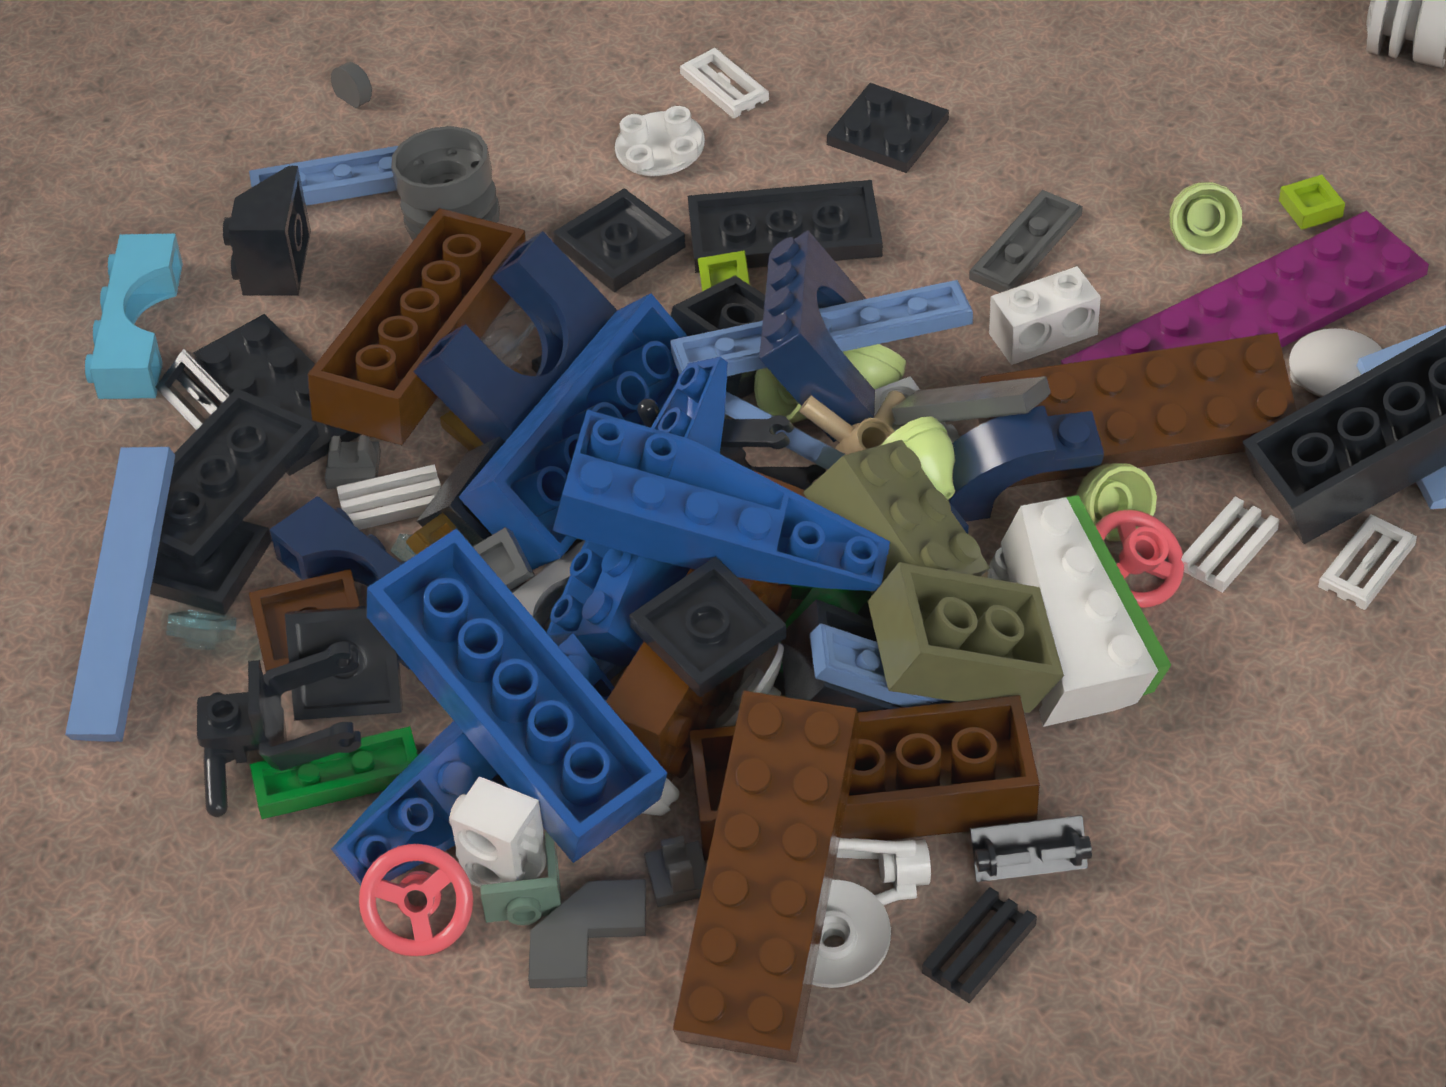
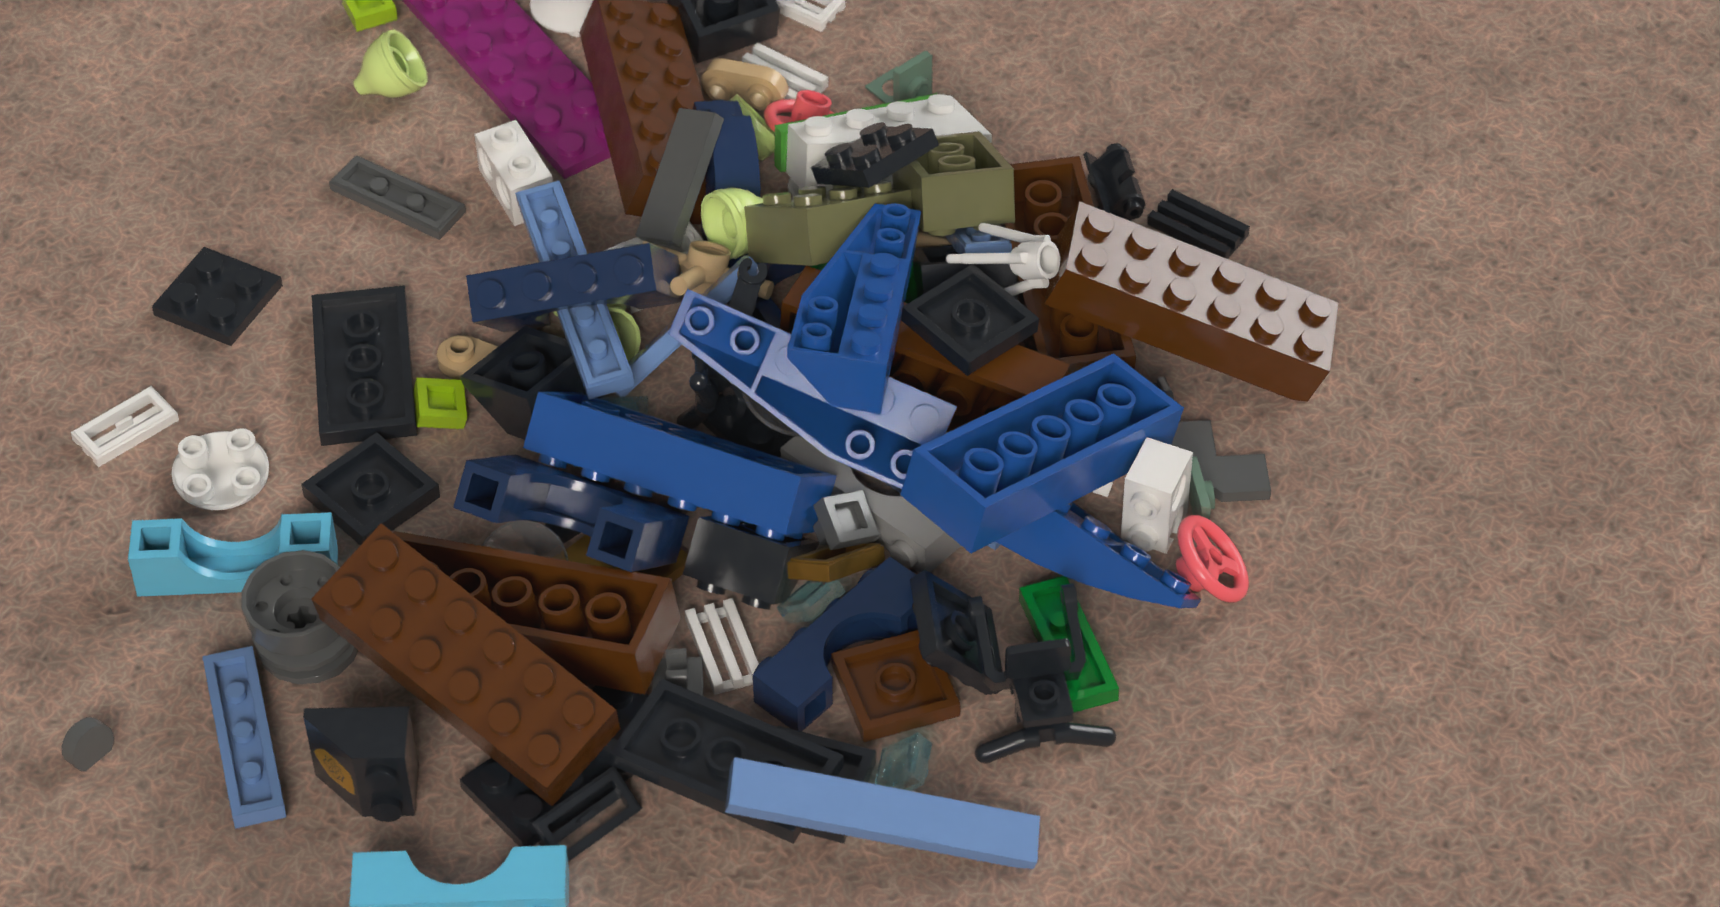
camera: 95 degrees left, 0 degrees up
(323, 264) = (466, 664): none -> reddish brown brick
(536, 163) = (177, 560): none -> medium azure arch
(785, 672) = (1033, 260): none -> white plant
(973, 546) = (874, 155): none -> black plate
(1200, 493) = (752, 82): none -> tan plate
(1205, 651) = (909, 80): none -> sand green bracket

